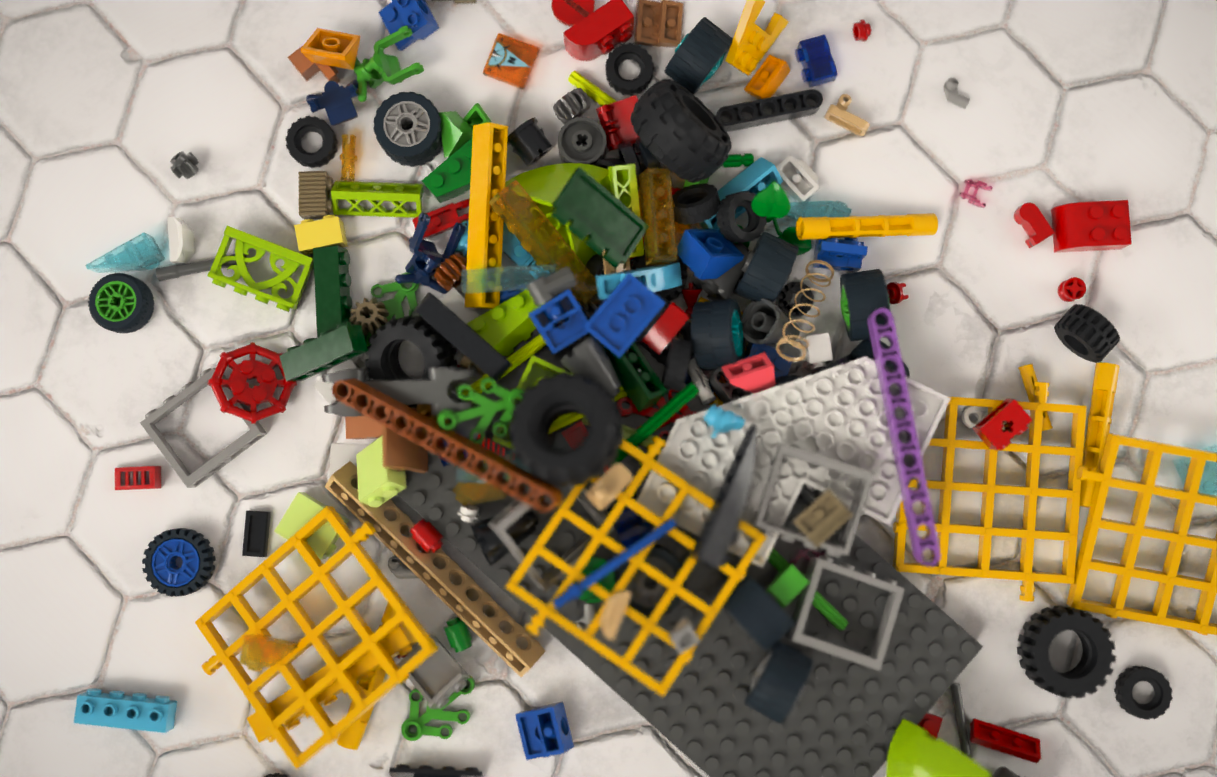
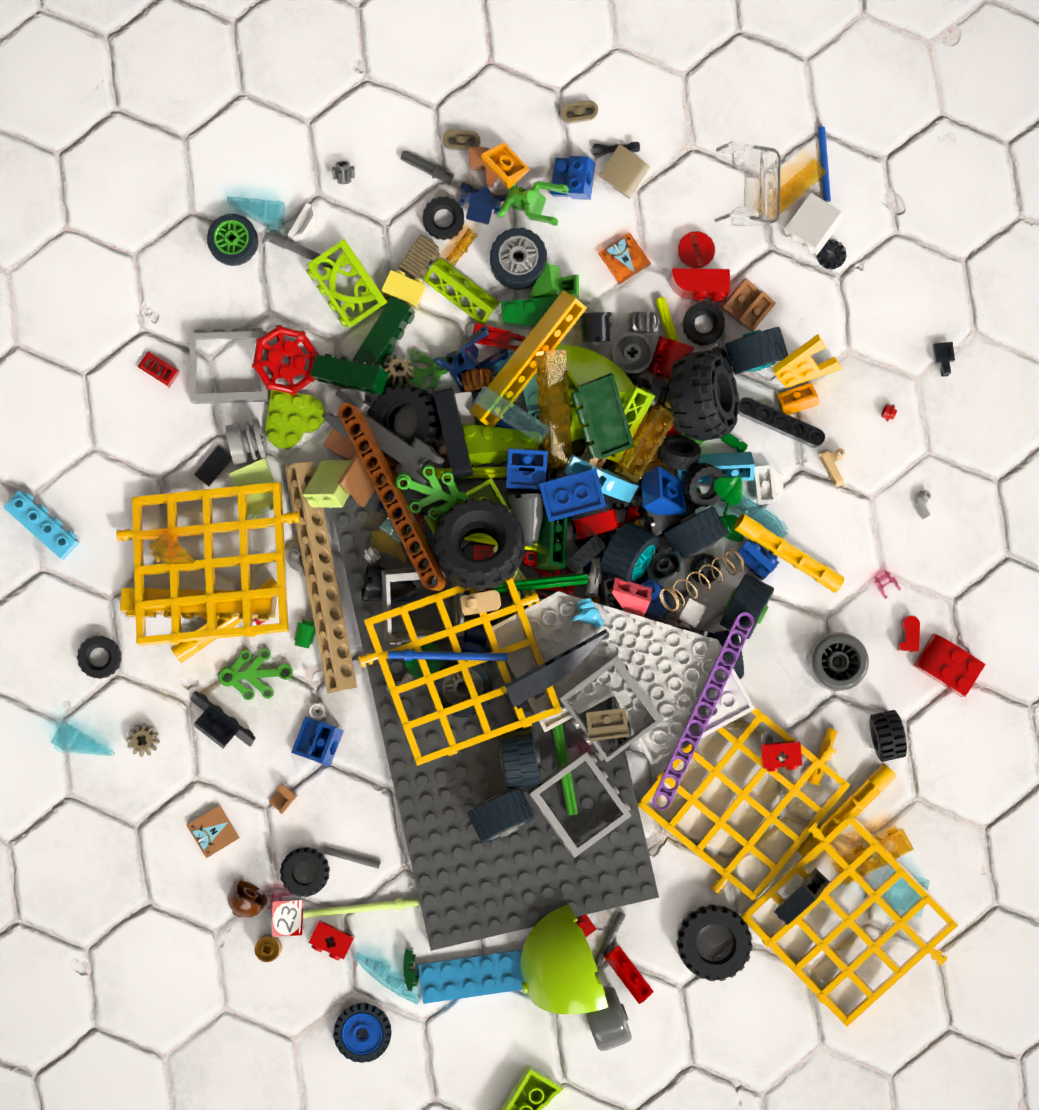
camera: 25 degrees right, 0 degrees up
(162, 567) = (132, 448): wheel -> none
(266, 492) = (246, 441): none -> light grey wheel
(272, 103) = (427, 167): none -> dark grey axle
(276, 55) = (461, 138): none -> dark tan plate
(299, 434) = (292, 417): none -> lime plate
(427, 536) = (331, 551): red brick -> none
(437, 676) = (270, 651): light grey panel -> none
(523, 706) = (322, 711): none -> white plate
(547, 287) = (532, 440): dark grey piece -> none
(613, 613) = (424, 686): tan slope -> none
(683, 636) = (459, 736): light grey slope -> none
(787, 584) = (552, 754): bright green slope -> none
(816, 61) = (840, 411): clear blue brick -> none
(895, 292) = (776, 613): red plate -> none
(1004, 292) = (853, 661): none -> dark grey wheel
(1075, 286) = (906, 697): red wheel -> none
(1123, 548) = (801, 896): none -> black slope
(1161, 687) = (763, 1010): black tyre -> none
(1172, 432) = (901, 846): none -> clear yellow brick

